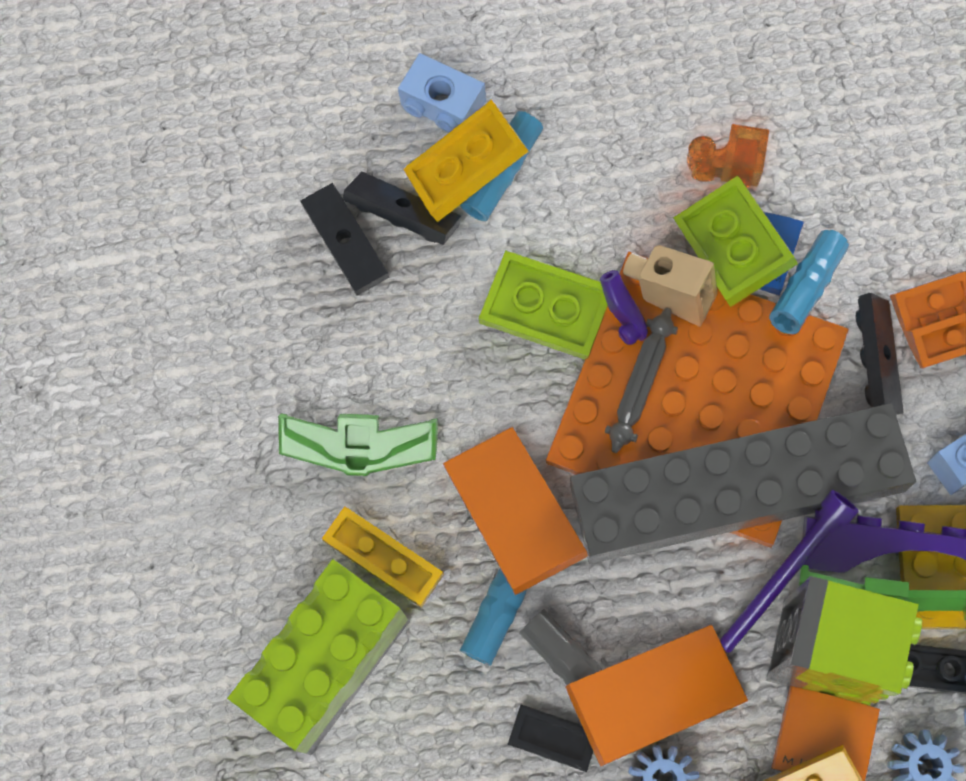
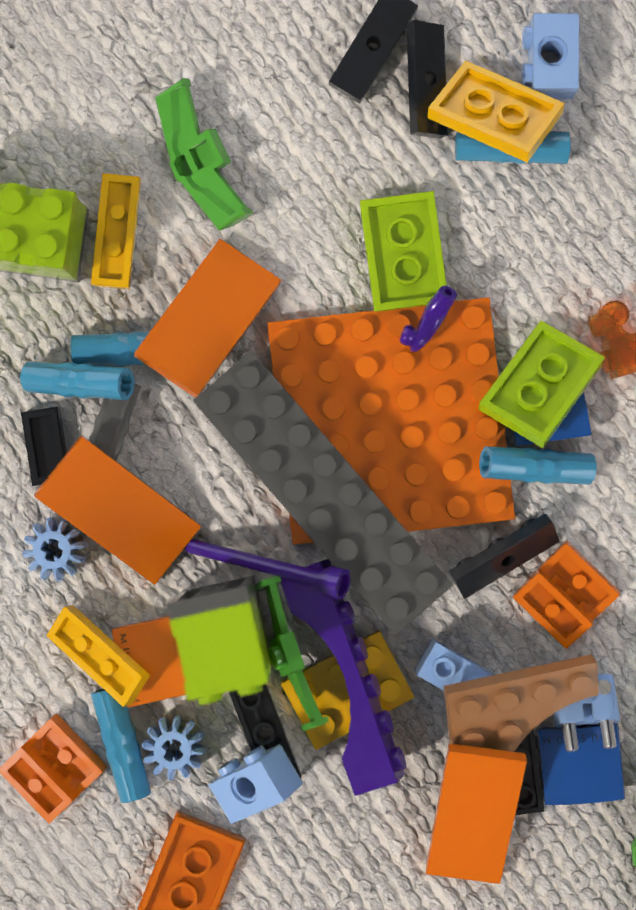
camera: 50 degrees right, 15 degrees up
(509, 663) = (77, 380): none -> dark azure axle
(641, 380) = (374, 367): dark grey wheel -> none
(675, 282) = (472, 363): tan torso -> none

